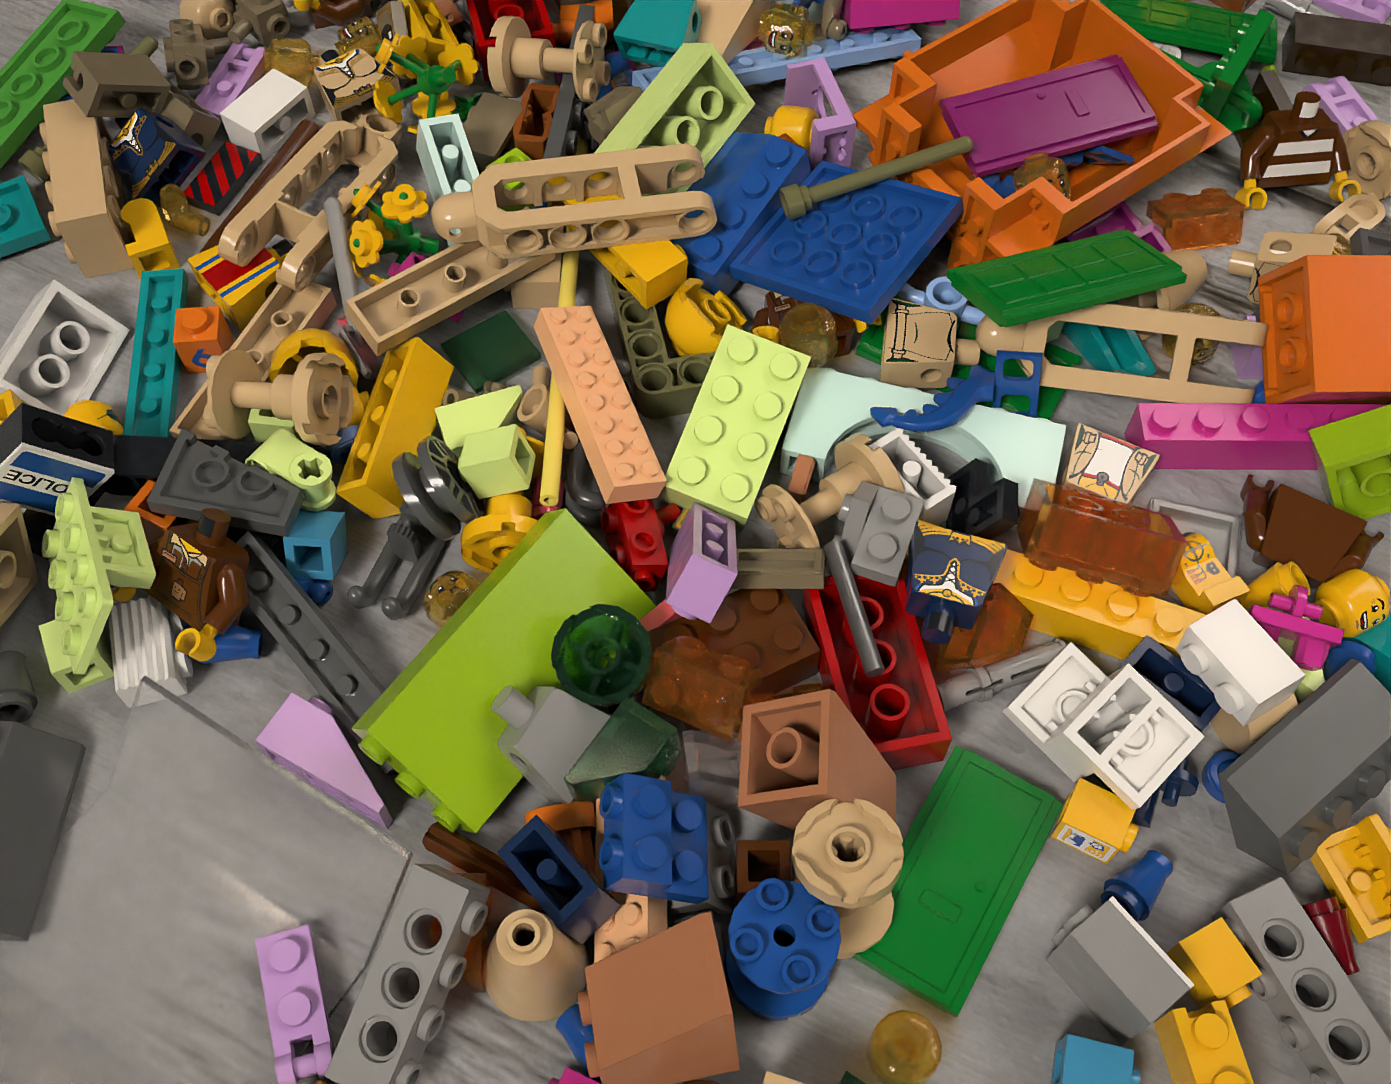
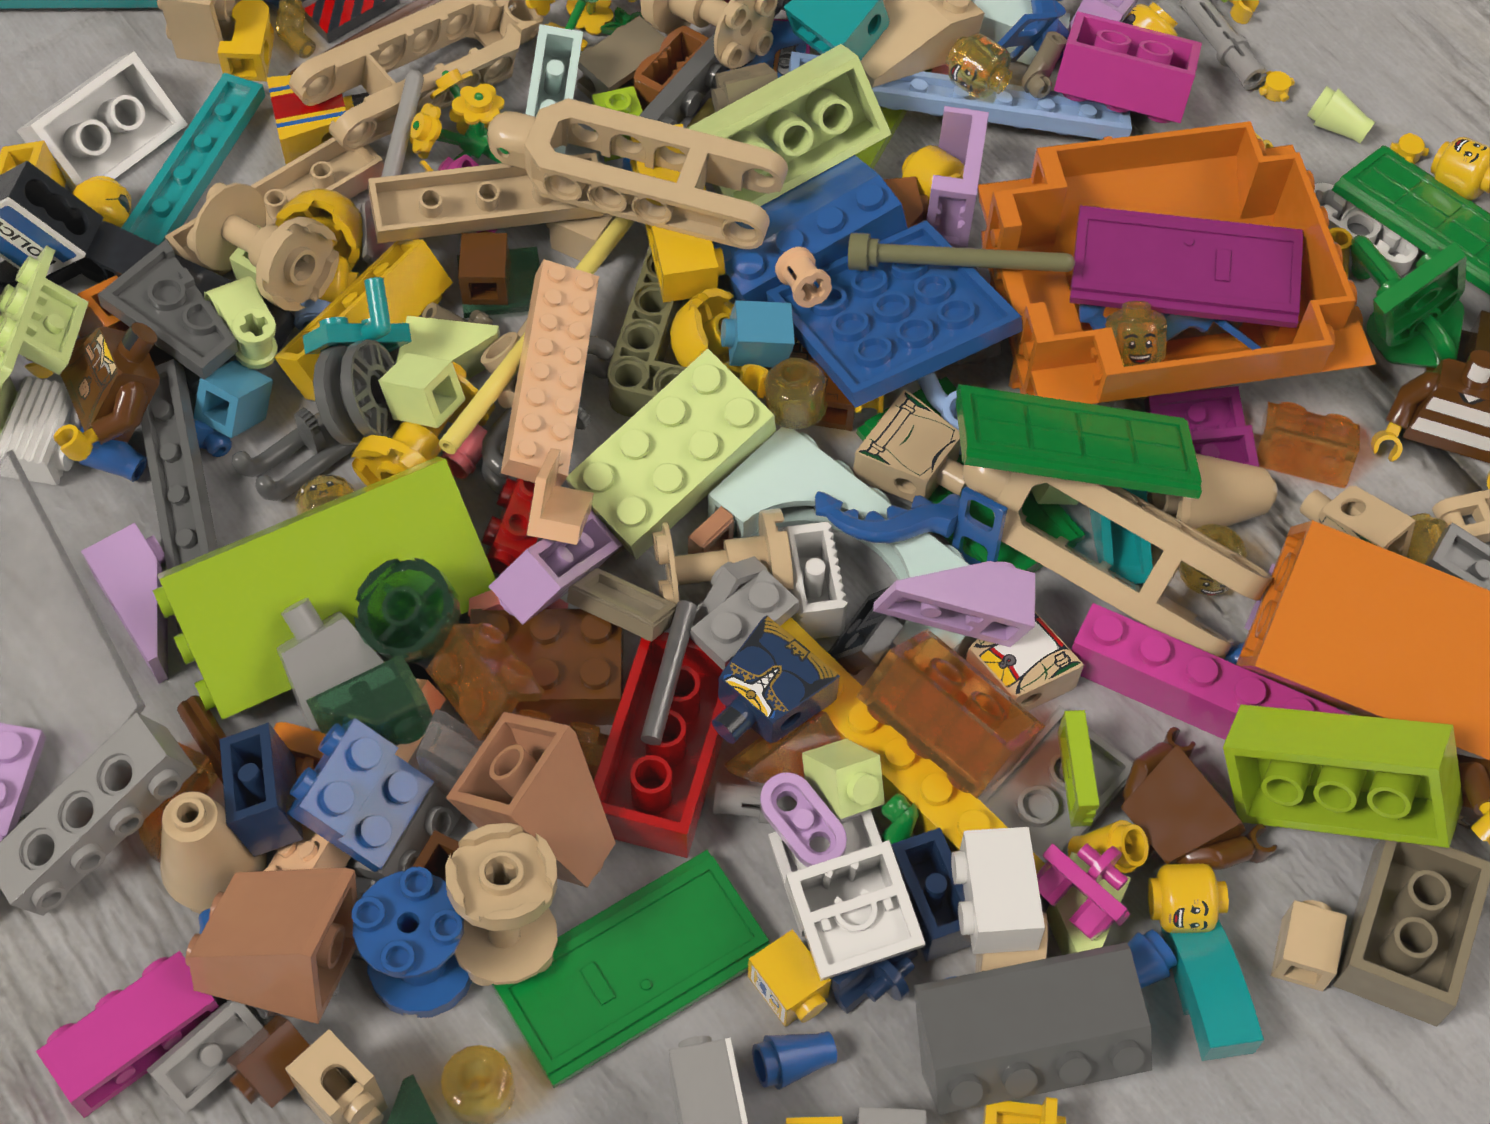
camera: 25 degrees right, 0 degrees up
(199, 335) = (241, 156): orange brick -> none
(393, 442) = (338, 331): none -> teal plate
(477, 342) = (484, 268): none -> reddish brown brick
(681, 511) = (556, 510): none -> light nougat panel
(751, 298) = (758, 333): none -> dark azure brick
(760, 239) = (803, 277): none -> light nougat bush
(1036, 678) = (805, 822): none -> lavender plate
(1045, 631) = (845, 777): none -> yellowish green brick
(1066, 438) = (973, 600): none -> lavender slope
(1107, 646) = (902, 816): none -> green arm
(1194, 516) = (1078, 768): none -> lime tile
(1202, 579) = (1046, 801): yellow leg -> none

